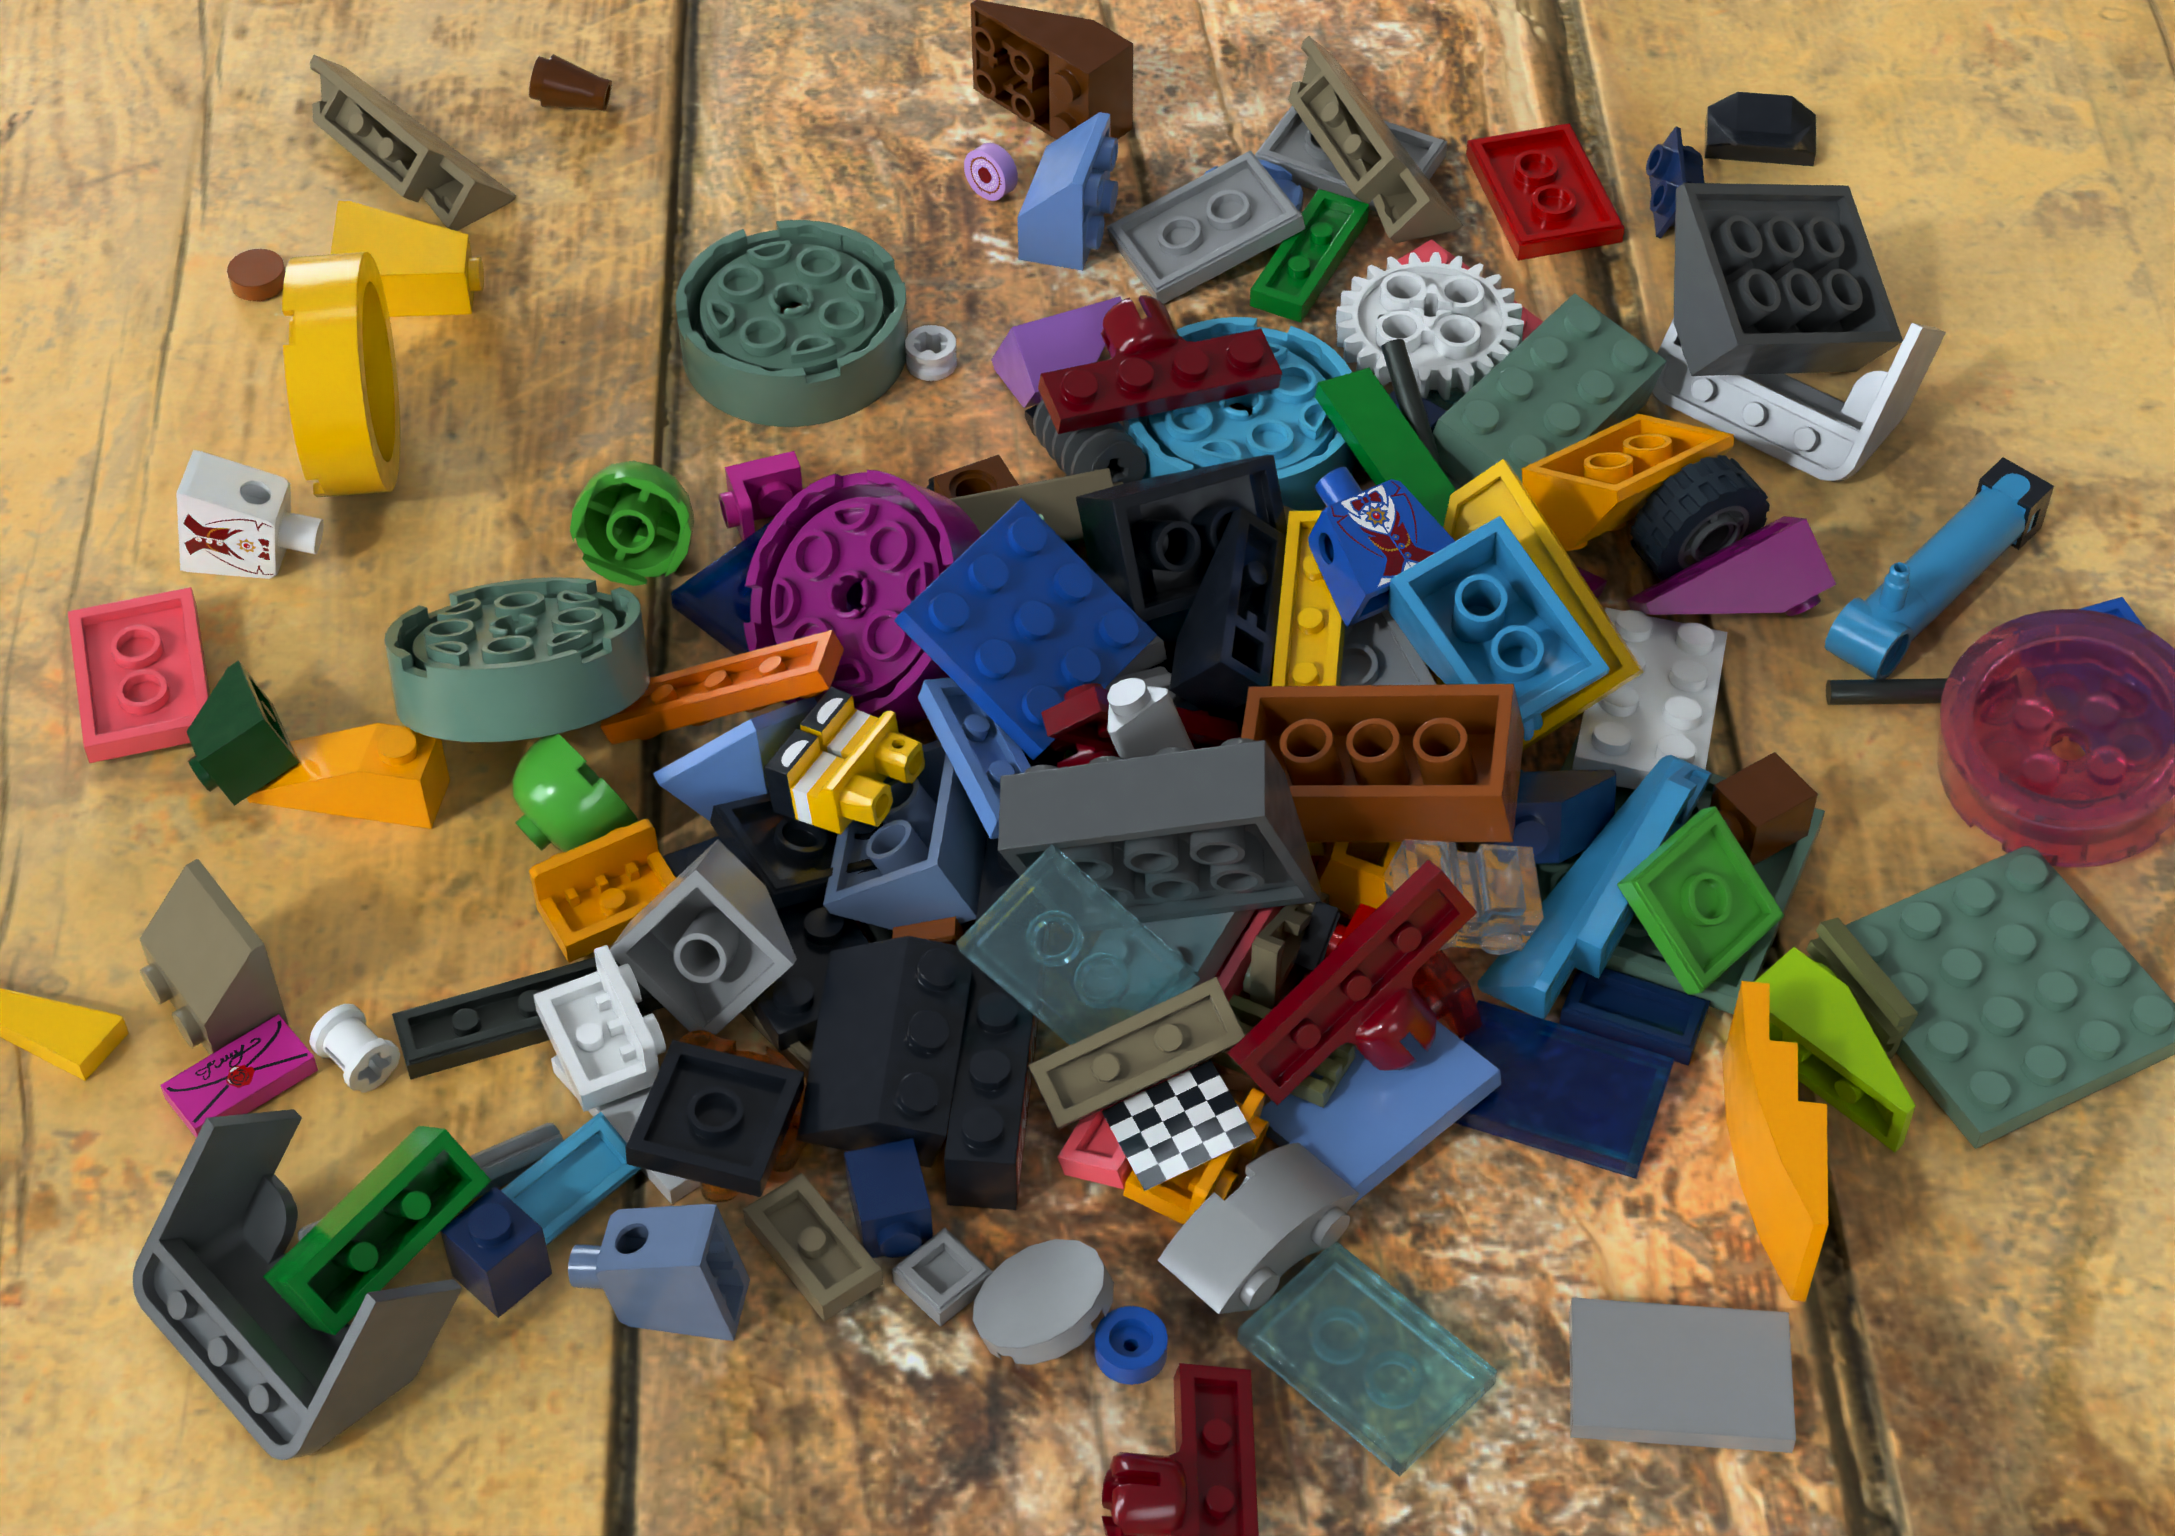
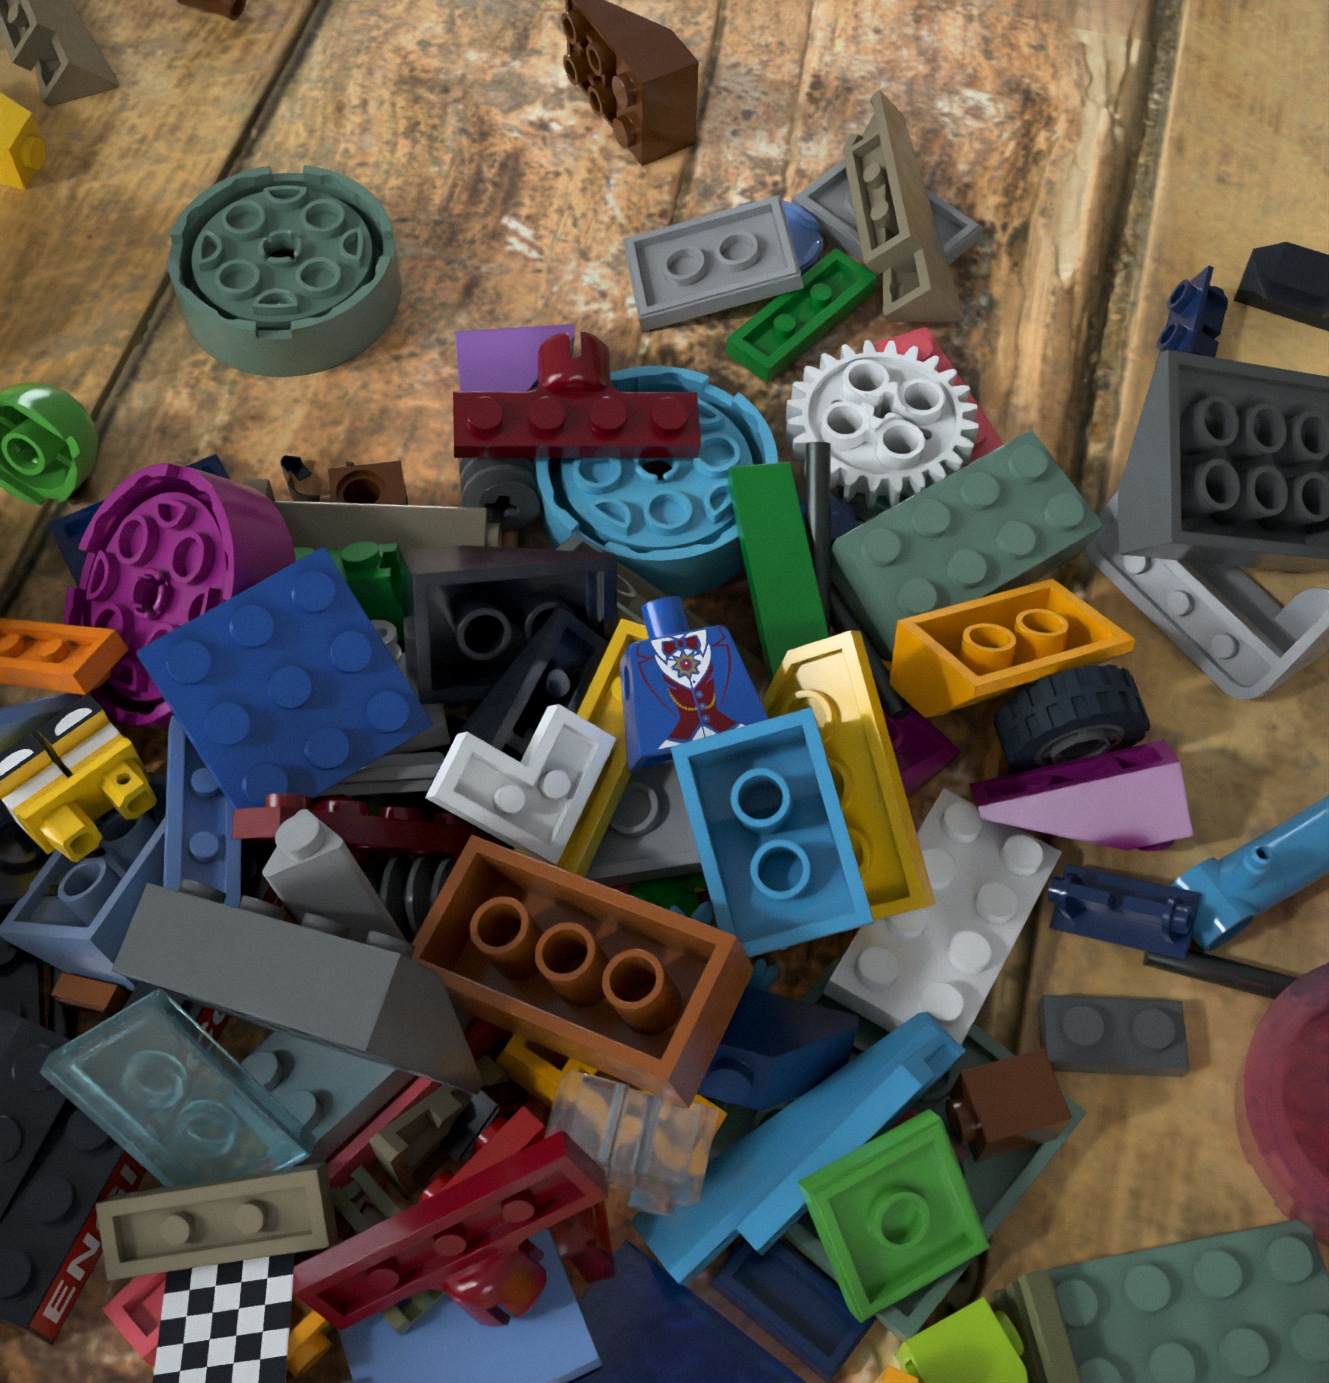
camera: 15 degrees right, 10 degrees up
(759, 490) = (174, 436): dark pink bracket -> none
(931, 352) = (405, 344): white bush -> none
(990, 171) = (538, 158): lavender tile -> none
(1070, 197) = (594, 203): medium blue slope -> none
(1277, 651) = (527, 801): none -> white plate
(1544, 191) = (1059, 301): red tile -> none
(1797, 661) = (1124, 911): none -> dark blue hinge
(1833, 755) = (1113, 1035): none -> dark grey plate

